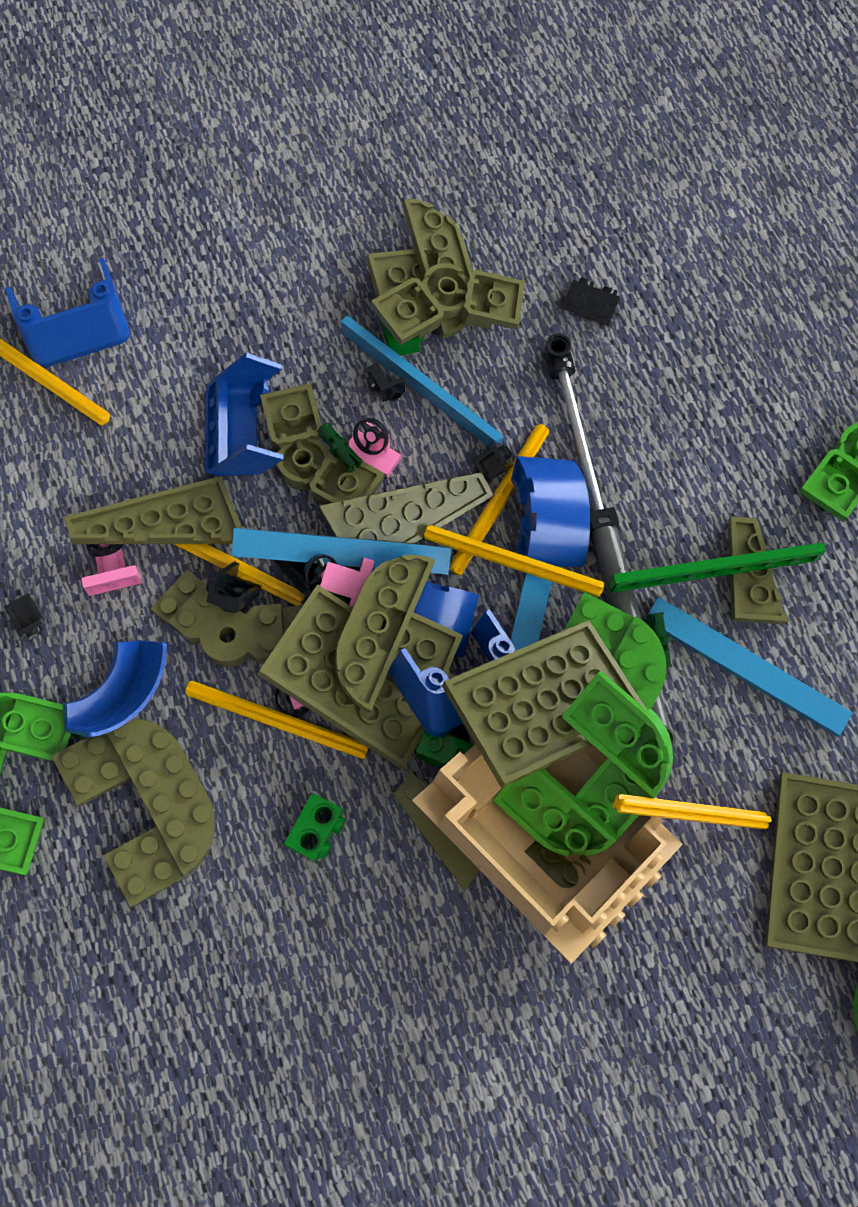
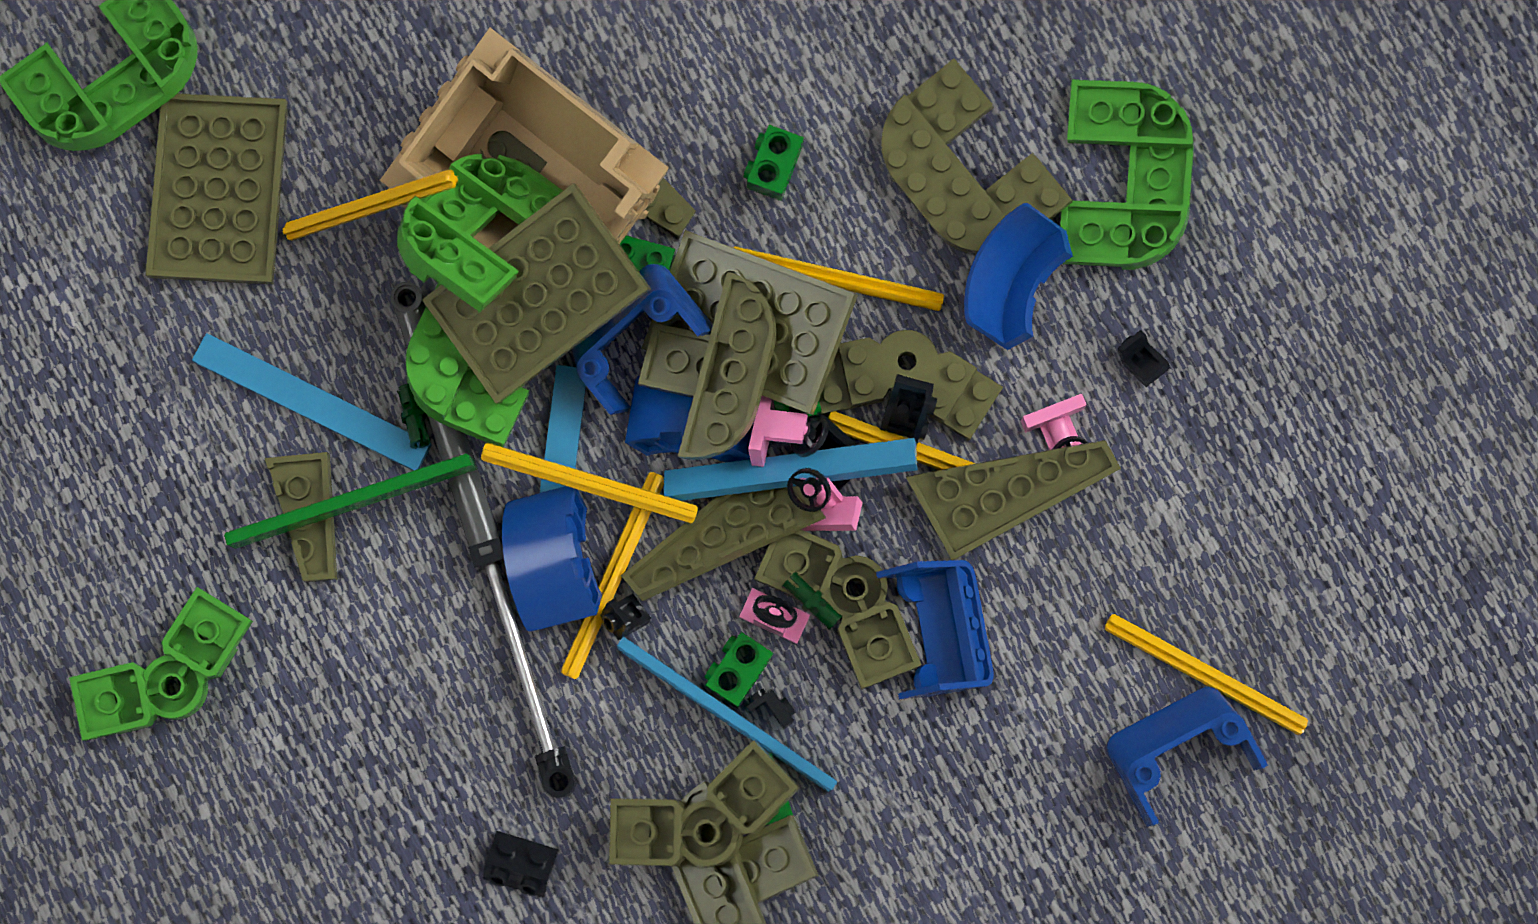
camera: 170 degrees right, 10 degrees up
(309, 516) = (840, 511): none -> bright pink piece
(401, 411) = (745, 673): none -> green brick

